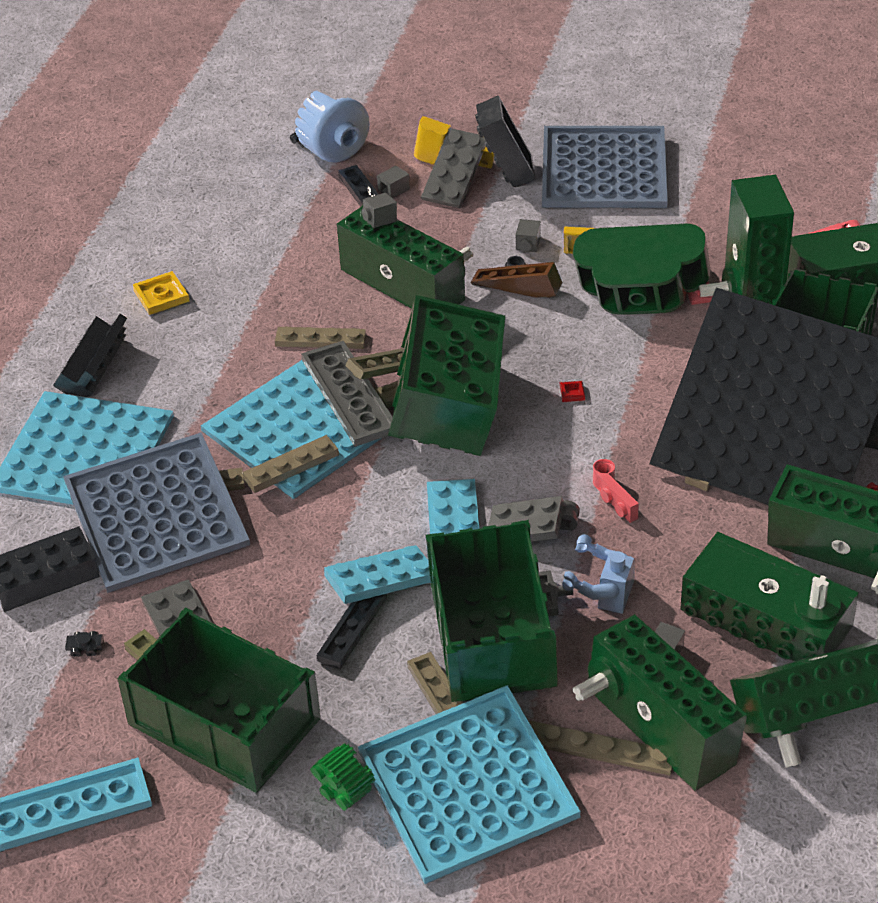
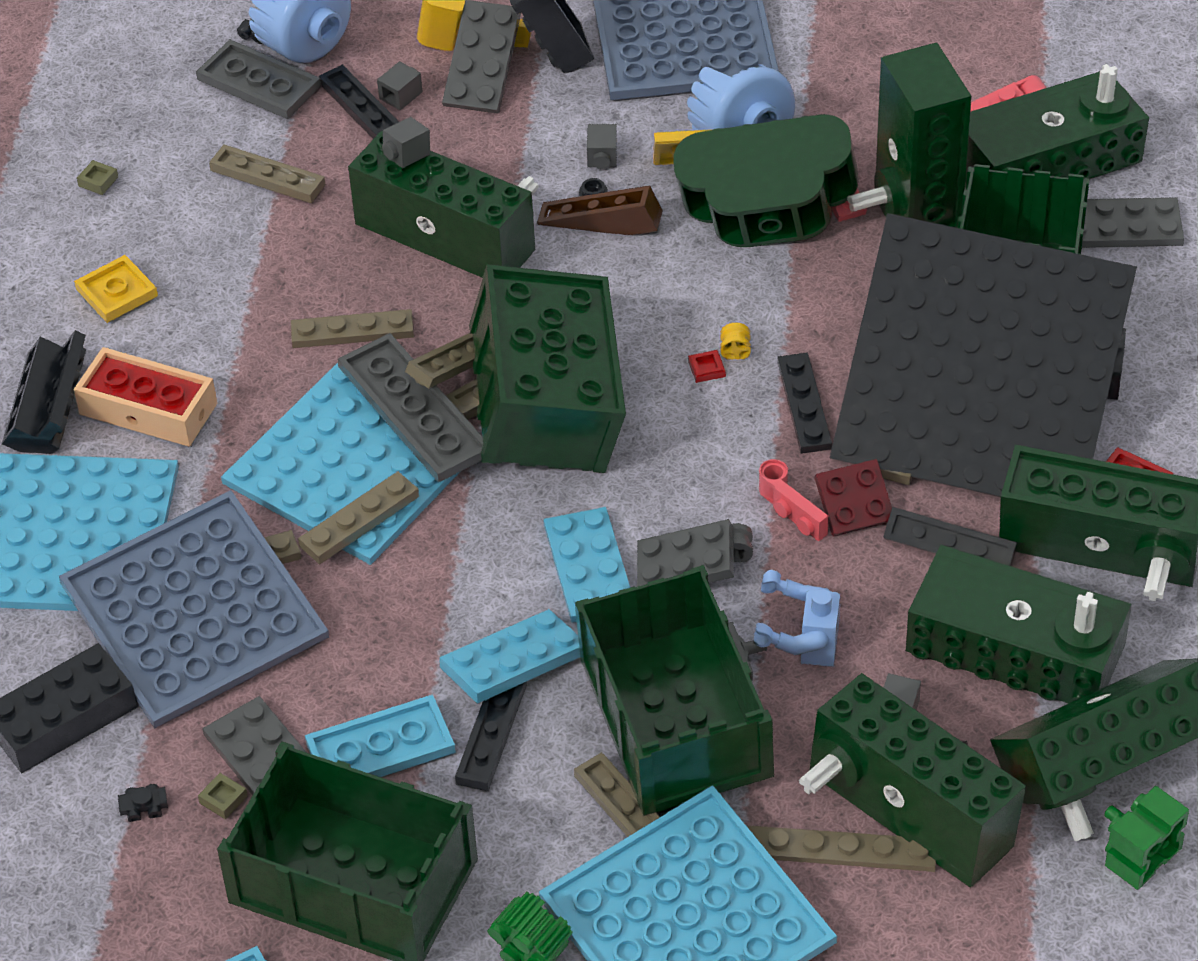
camera: 10 degrees left, 5 degrees up
(160, 365) = (145, 396): none -> light nougat brick
(167, 220) = (97, 177): none -> olive plate
(274, 621) = (387, 739): none -> medium azure plate
(286, 229) = (267, 173): none -> dark tan plate
(296, 168) = (258, 79): none -> dark grey plate
(596, 376) = (735, 341): none -> yellow wheel
(631, 208) = (738, 100): none -> light blue piece
(639, 424) = (804, 403): none -> black plate
(662, 493) = (854, 497): none -> dark red plate
(708, 523) = (929, 533): none -> black plate
(840, 769) = (1144, 837): none -> green brick

